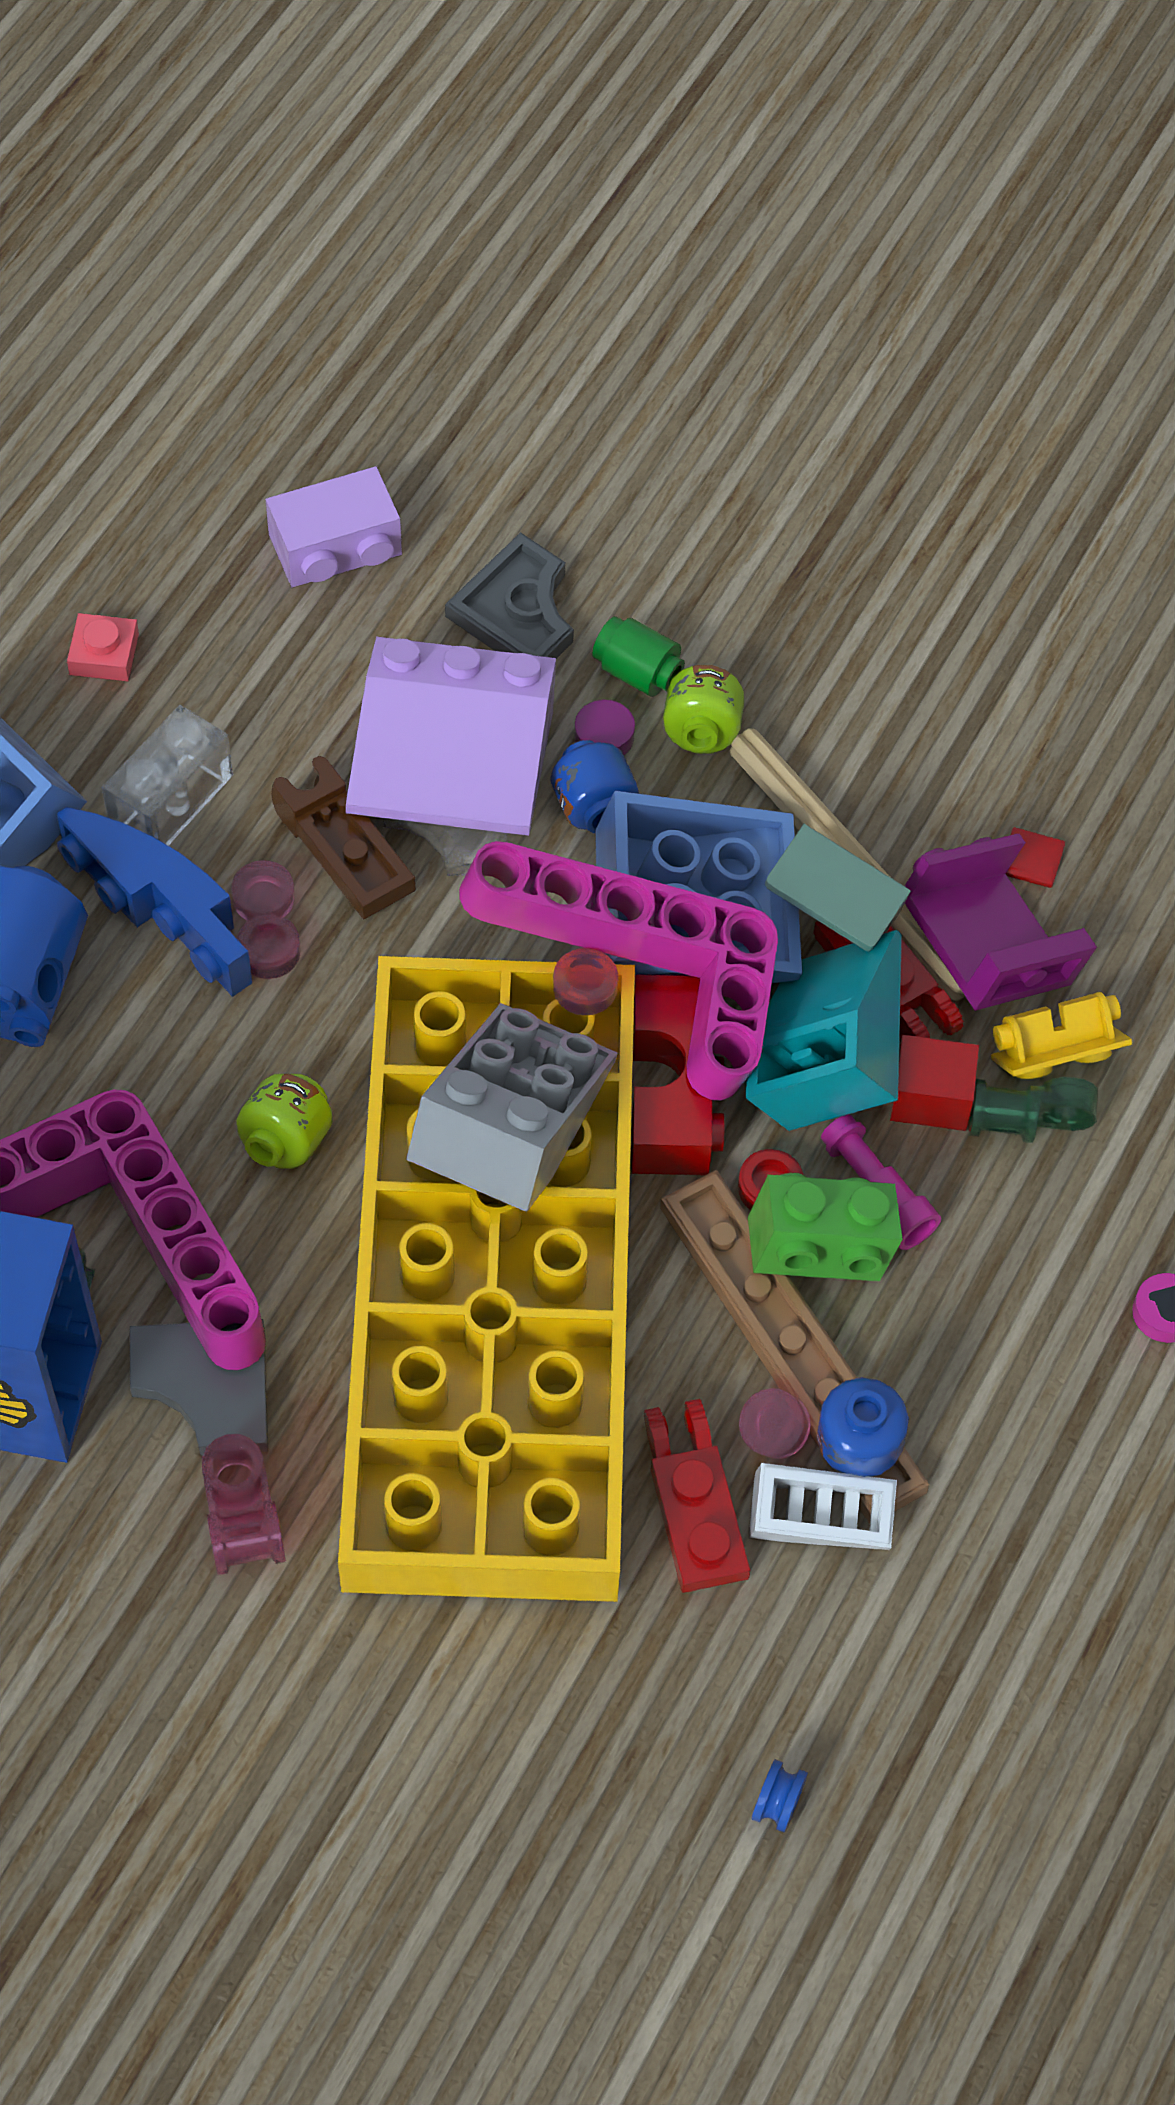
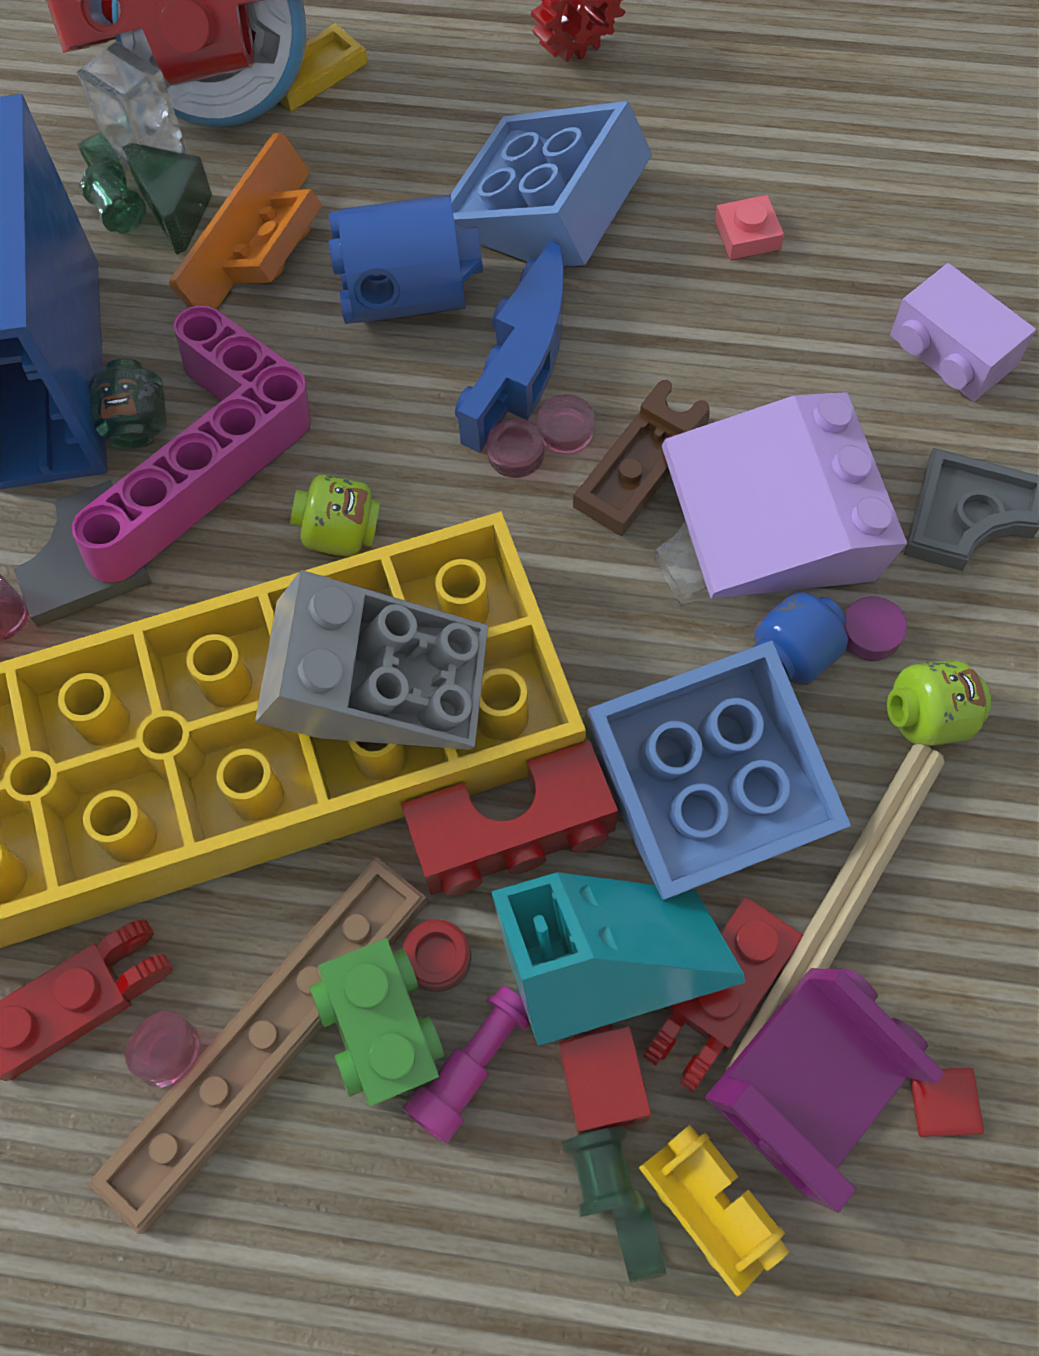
camera: 75 degrees right, 5 degrees up
(170, 776) = (630, 309): clear brick -> none
(585, 981) = (541, 689): clear pink tile -> none
(638, 655) = (968, 622): green brick -> none
(644, 939) = (605, 719): dark pink beam -> none
(792, 1530) = (48, 1109): white slope -> none
(837, 888) = (757, 893): sand green panel -> none
(862, 1427) = (144, 1137): blue head -> none

